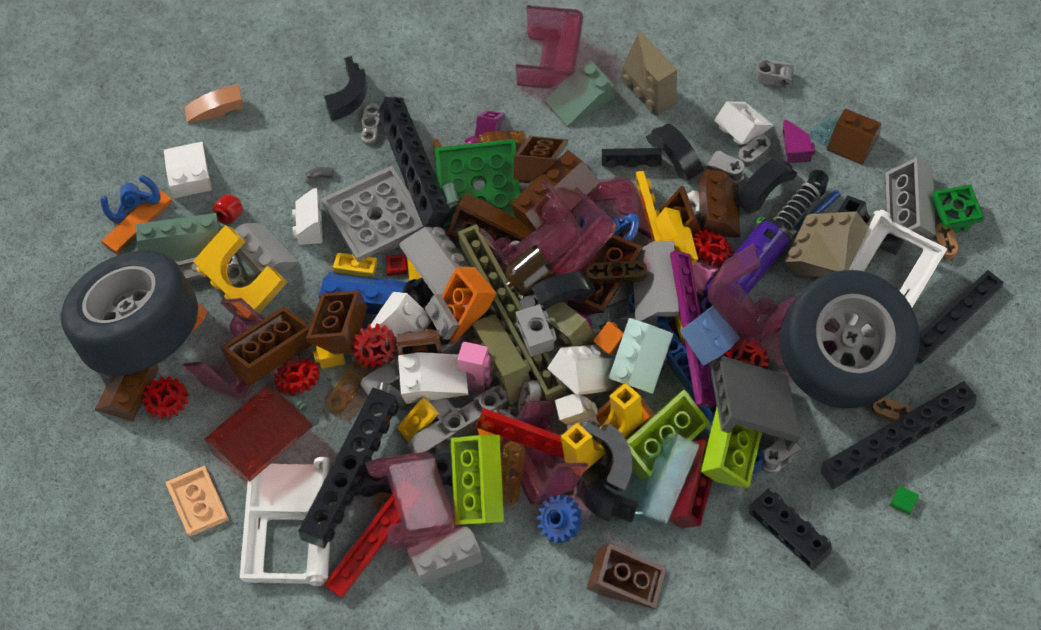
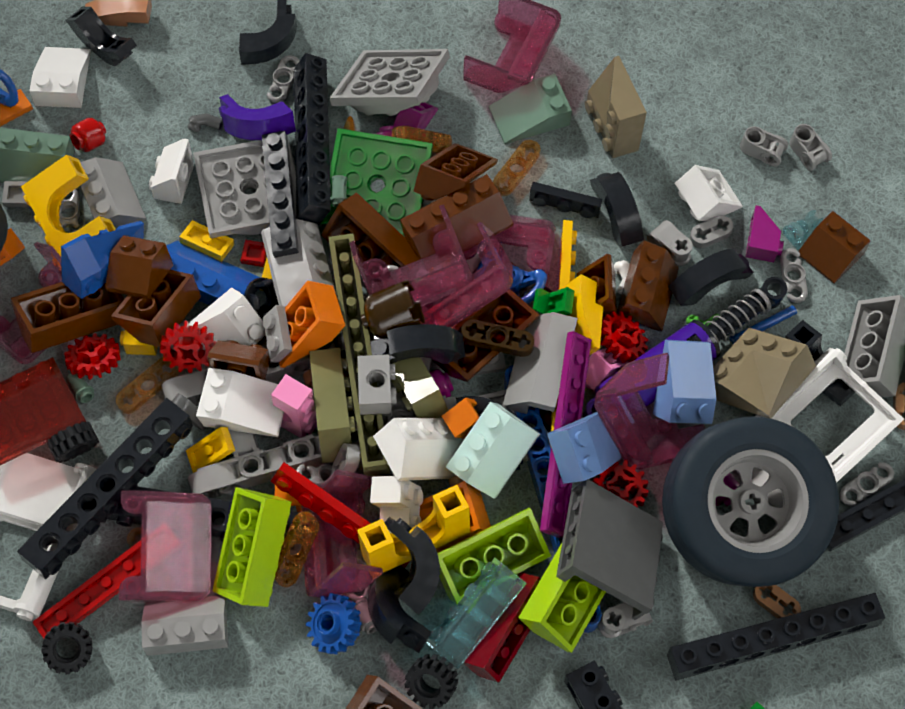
camera: 10 degrees right, 5 degrees up
(208, 131) = (99, 38): none -> black arch
(276, 298) = (87, 258): none -> blue wedge
(306, 443) = (72, 441): none -> black tyre
(312, 295) = (137, 266): none -> reddish brown slope
(362, 163) = (253, 123): none -> dark purple arch
(372, 594) = (61, 664): none -> black tyre
(404, 211) = (279, 194): none -> plate
(461, 100) = (390, 80): none -> light grey piece
(582, 135) = (517, 158): none -> clear orange beam
(651, 526) = (437, 669): none -> black tyre
(654, 232) = (557, 301): none -> green bracket
(778, 271) = (689, 386): none -> medium blue slope
(811, 64) = (810, 150): none -> light grey piece
(829, 159) = (799, 284): none -> light grey piece
(941, 302) = (878, 482): none -> light grey piece

